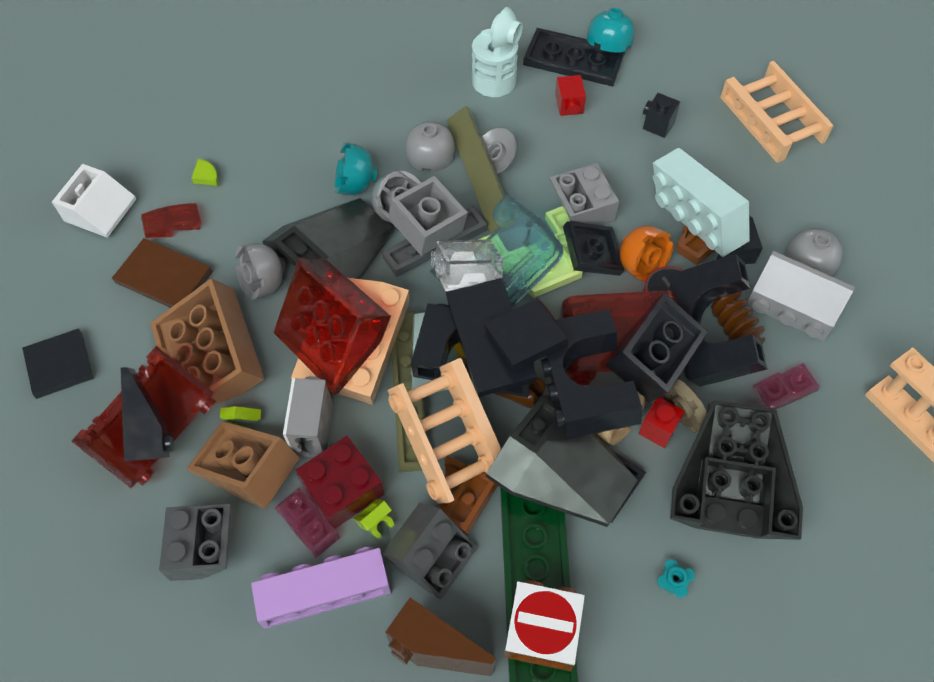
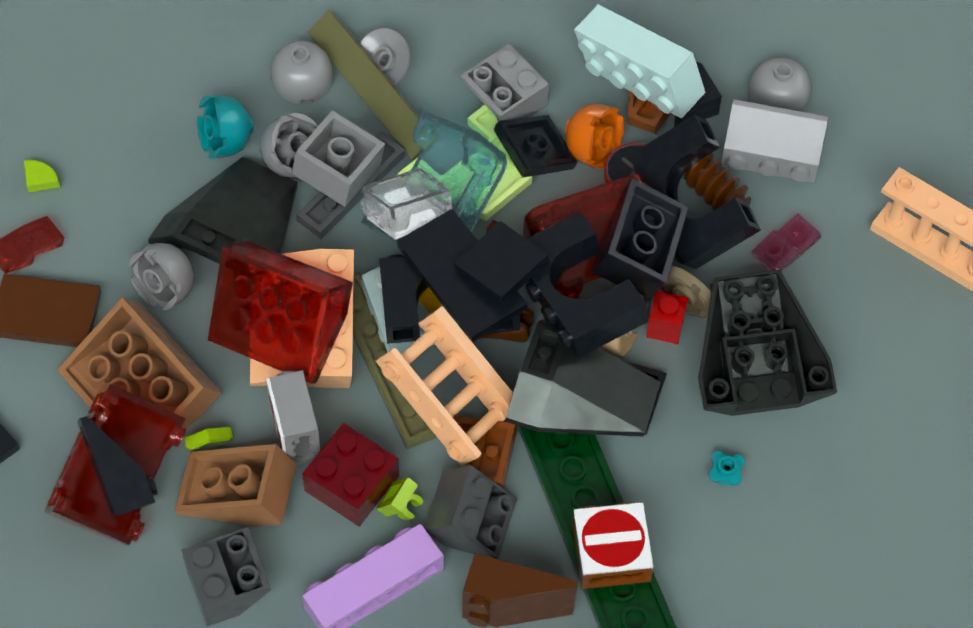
camera: 20 degrees left, 0 degrees up
(307, 522) = (329, 527): clear pink slope -> none

